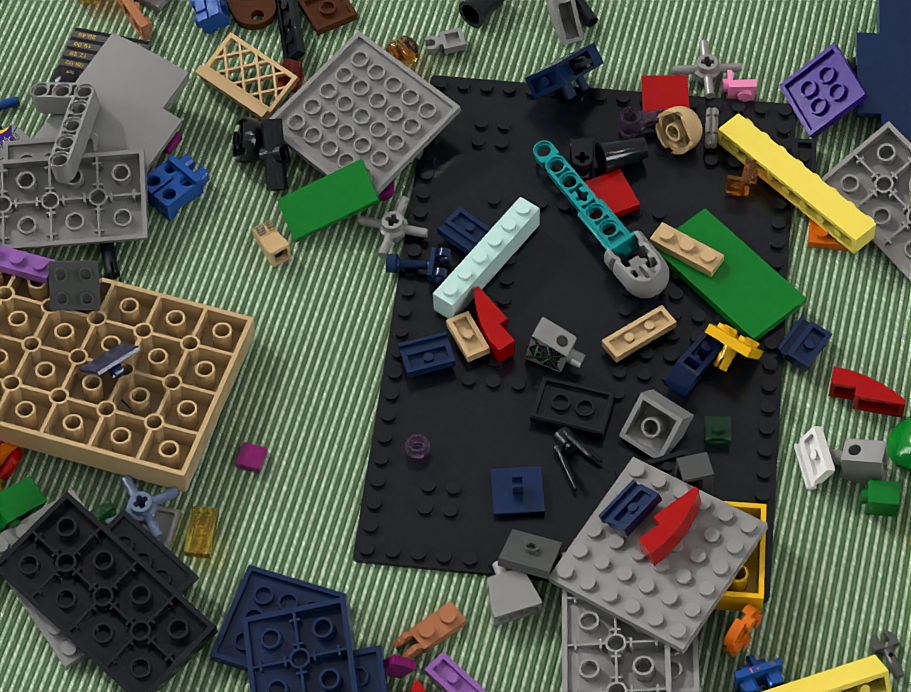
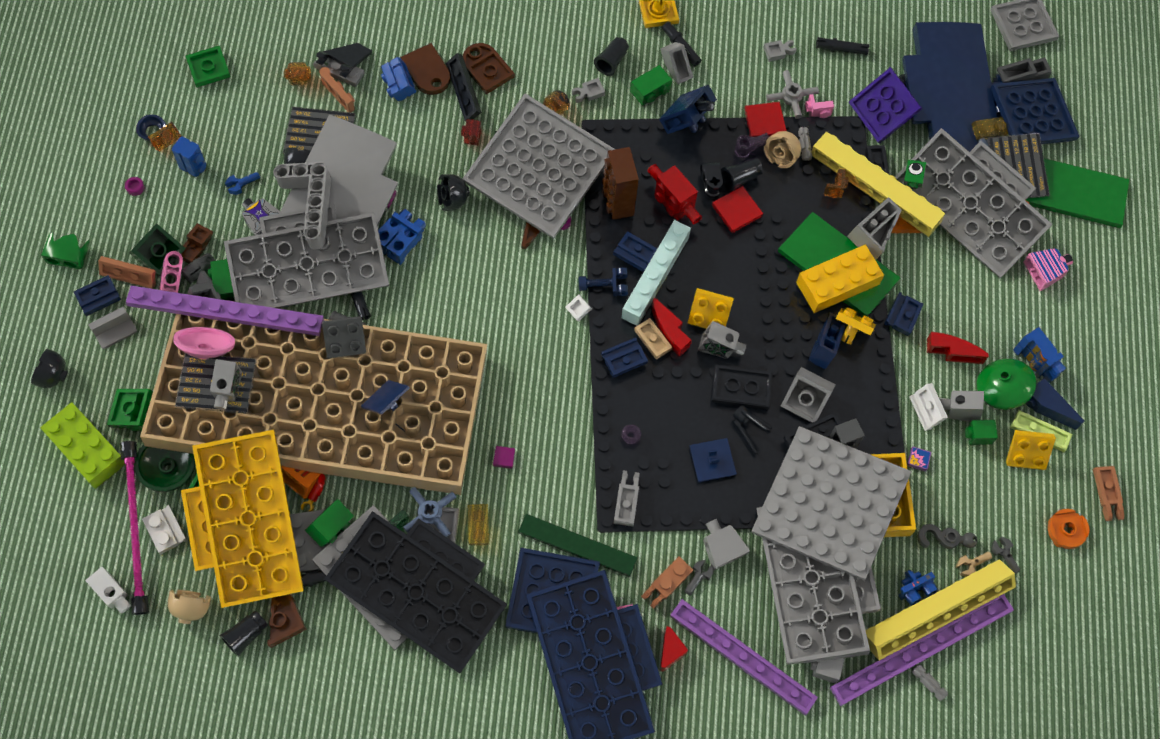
camera: 15 degrees left, 10 degrees up
(232, 89) = (430, 149): tan fence -> none
(271, 243) = (485, 276): tan leg -> none
(274, 154) = (475, 203): black piece -> none
(323, 572) = (577, 545): none -> dark green tile
(328, 200) = (525, 237): green tile -> none
(382, 292) = (578, 307): none -> white tile
(393, 226) = (578, 258): light grey bar -> none
(395, 524) = (626, 501): none -> light grey hinge
(399, 666) = (652, 615): magenta tile -> none
(455, 144) = (620, 183): none -> reddish brown brick
(473, 629) = (698, 576): none -> dark grey bar
(526, 42) = (651, 85): none -> green brick
(528, 166) = (675, 193): none -> red brick
(530, 554) = (734, 512): dark grey plate -> none
(547, 302) = (709, 307): none -> yellow plate
(618, 245) = (756, 249): piece -> none
(630, 508) = (807, 470): dark blue plate -> none
(638, 333) = (781, 321): tan plate -> none
(671, 526) = (841, 484): red slope -> none
(686, 249) = (804, 247): tan plate -> none
(697, 16) = (777, 50): none -> light grey plate
(717, 429) = (853, 392): clear green plate -> none
(722, 288) = (839, 278): none -> yellow brick
(738, 634) = (902, 551): orange plate -> none
(780, 233) = (876, 228): none -> light grey wedge
(789, 20) = (844, 46): none -> black pin
(792, 522) = (919, 459): none -> tile
(812, 622) = (948, 538): none -> dark grey piece
(841, 658) = (972, 563): none -> tan bar
(845, 173) = (914, 174): none -> green brick

